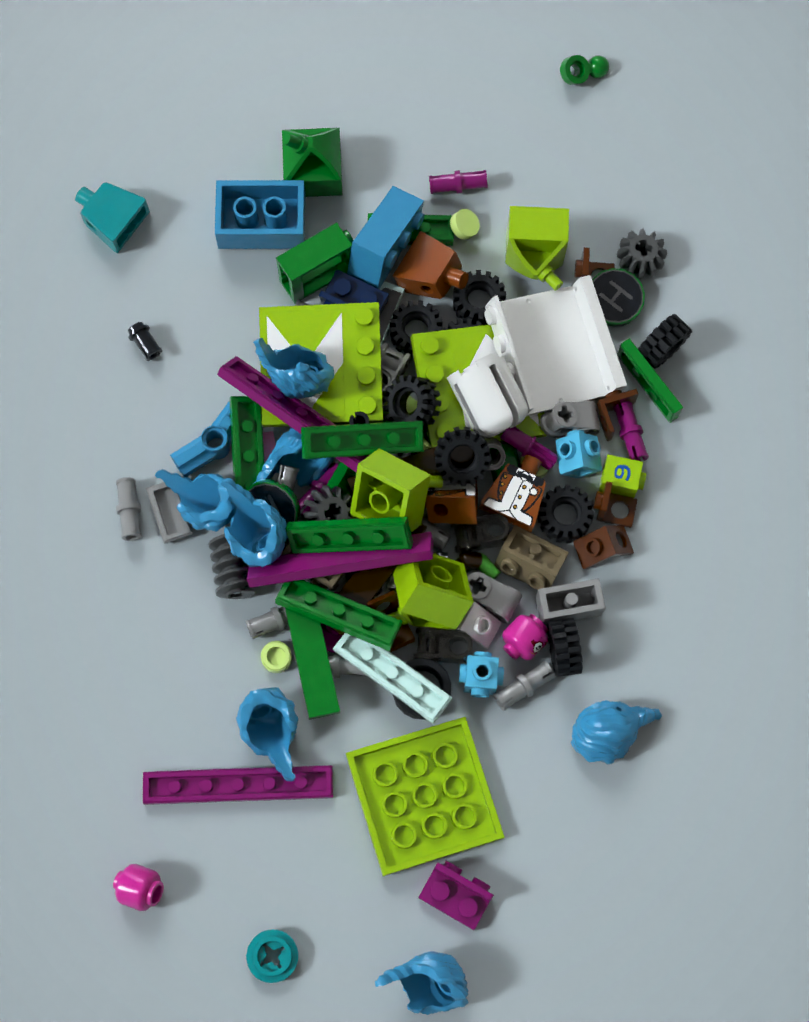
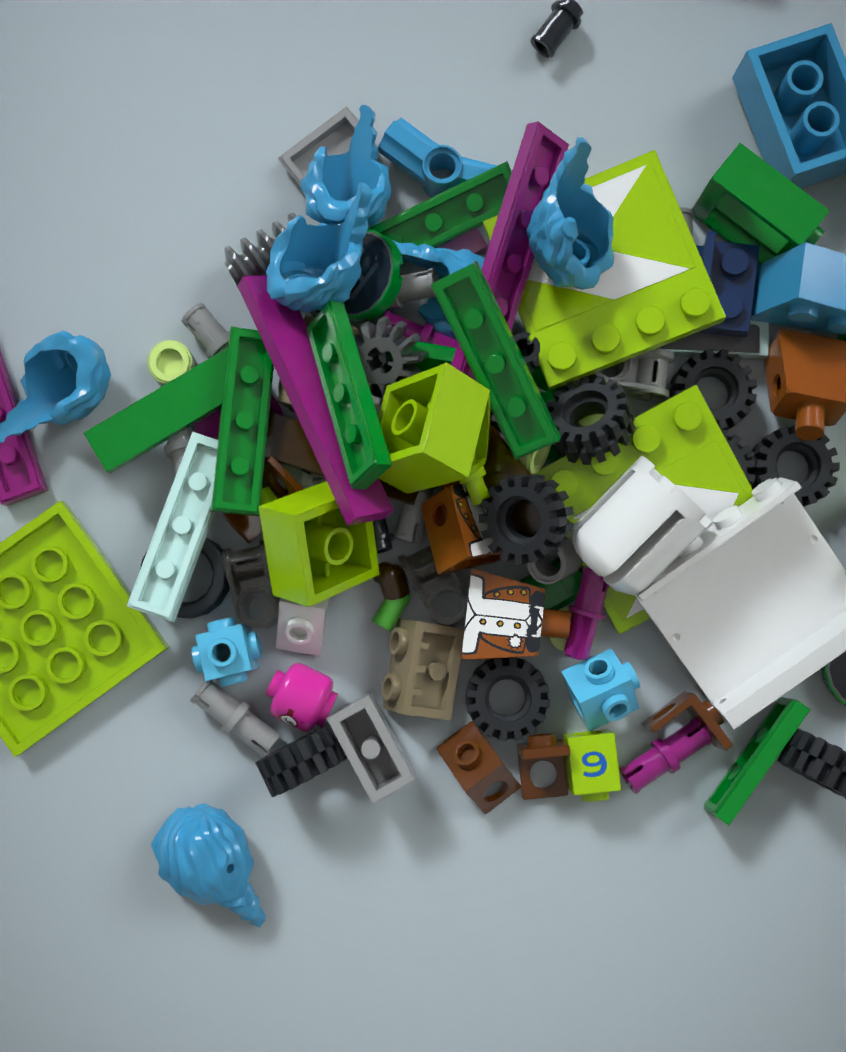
camera: 75 degrees right, 10 degrees up
(128, 509) = (309, 93): light grey pin -> none
(495, 596) = (347, 637): light grey piece -> none
(569, 417) = (653, 661): light grey piece -> none

